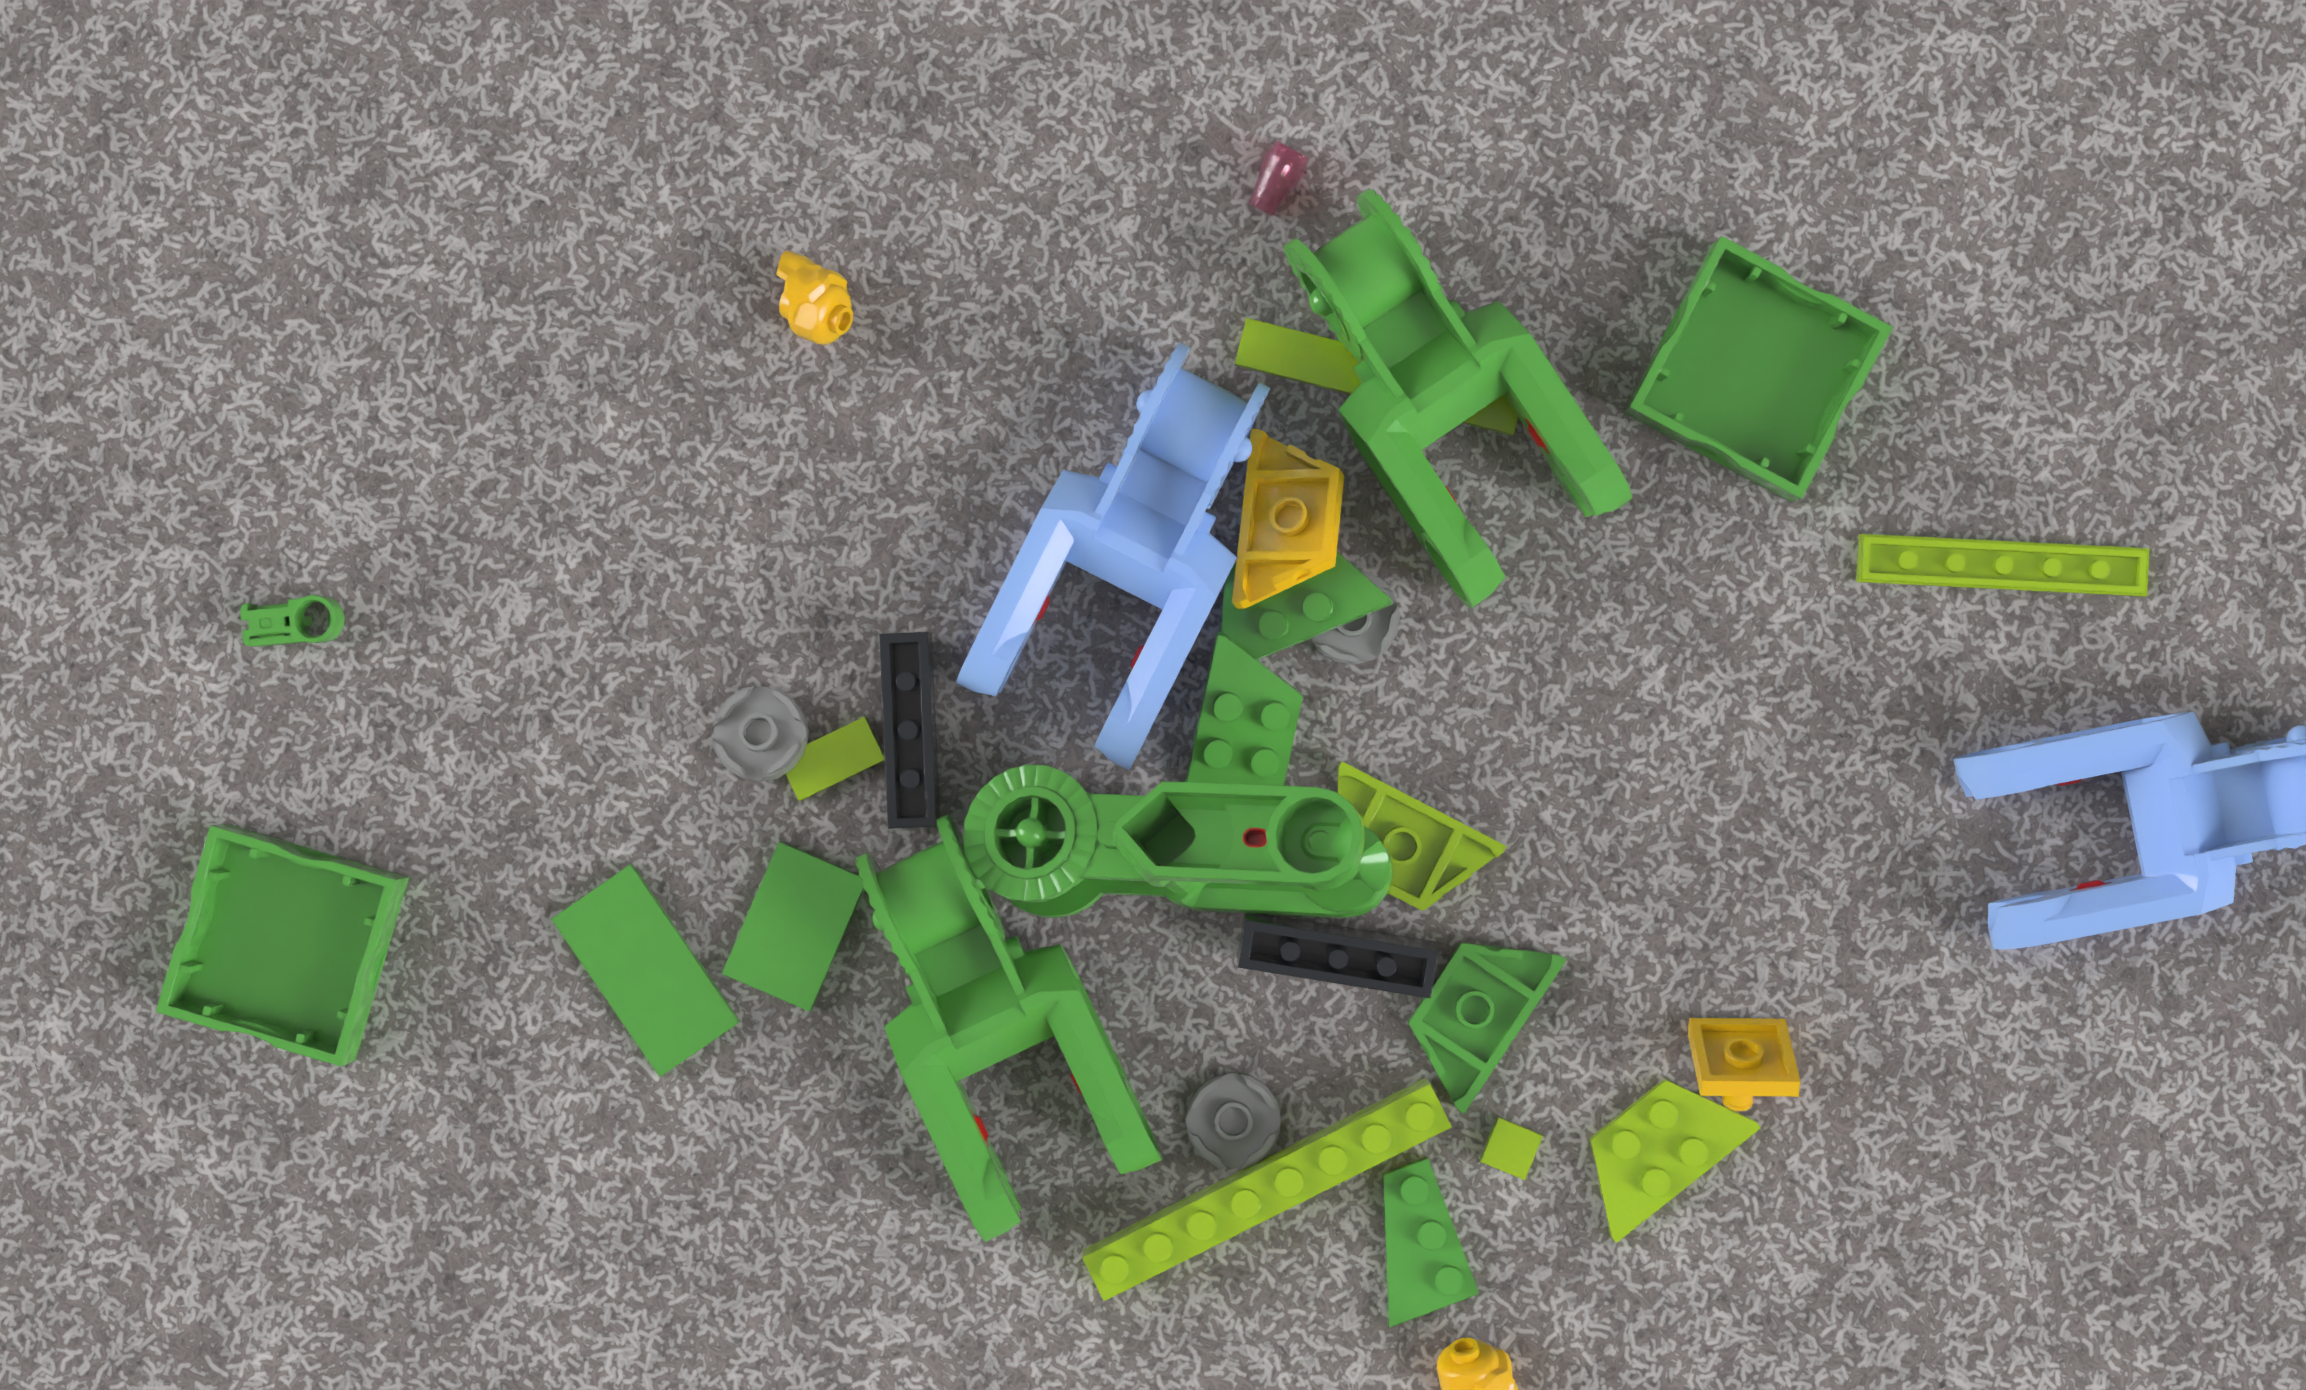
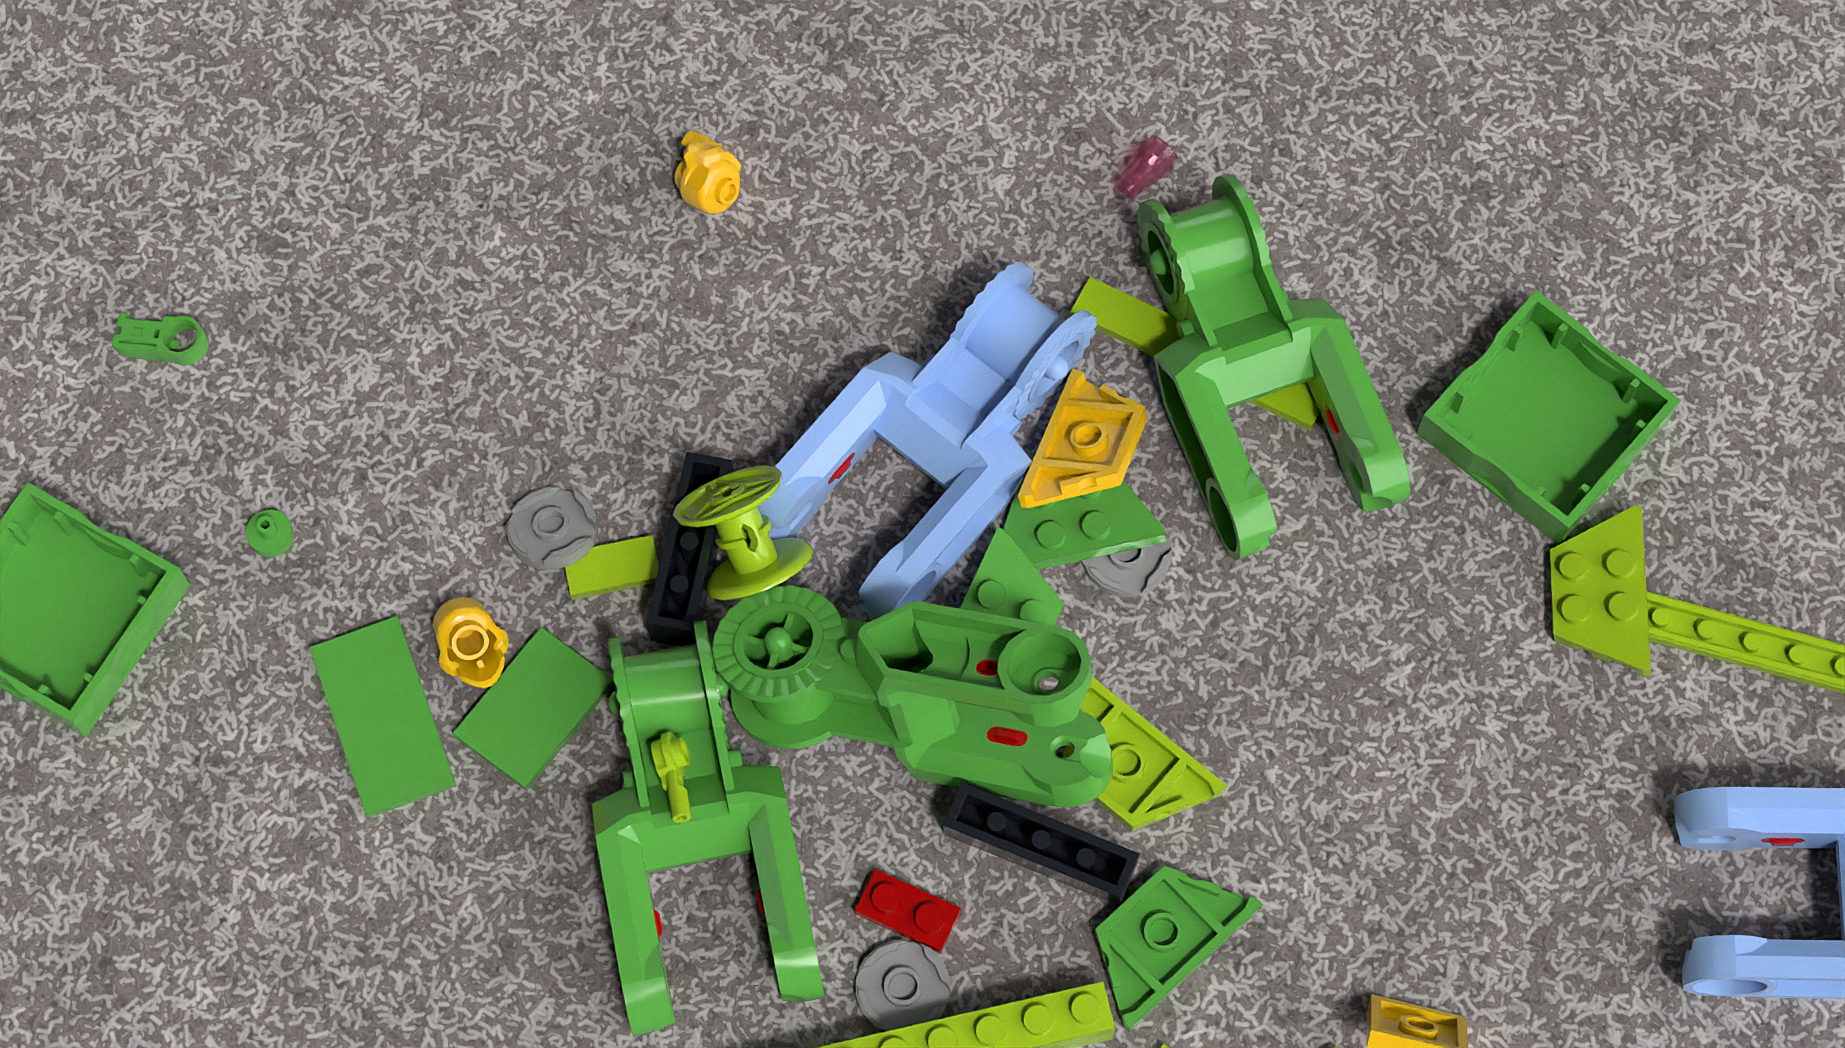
camera: 20 degrees right, 20 degrees down
(483, 805) = (269, 533): none -> bright green tile
(713, 880) = (469, 642): none -> yellow head
(946, 696) = (754, 558): none -> lime piece
(953, 973) = (671, 758): none -> lime plate
(1219, 1043) = (907, 911): none -> red plate
(1846, 549) = (1603, 592): none -> lime wing

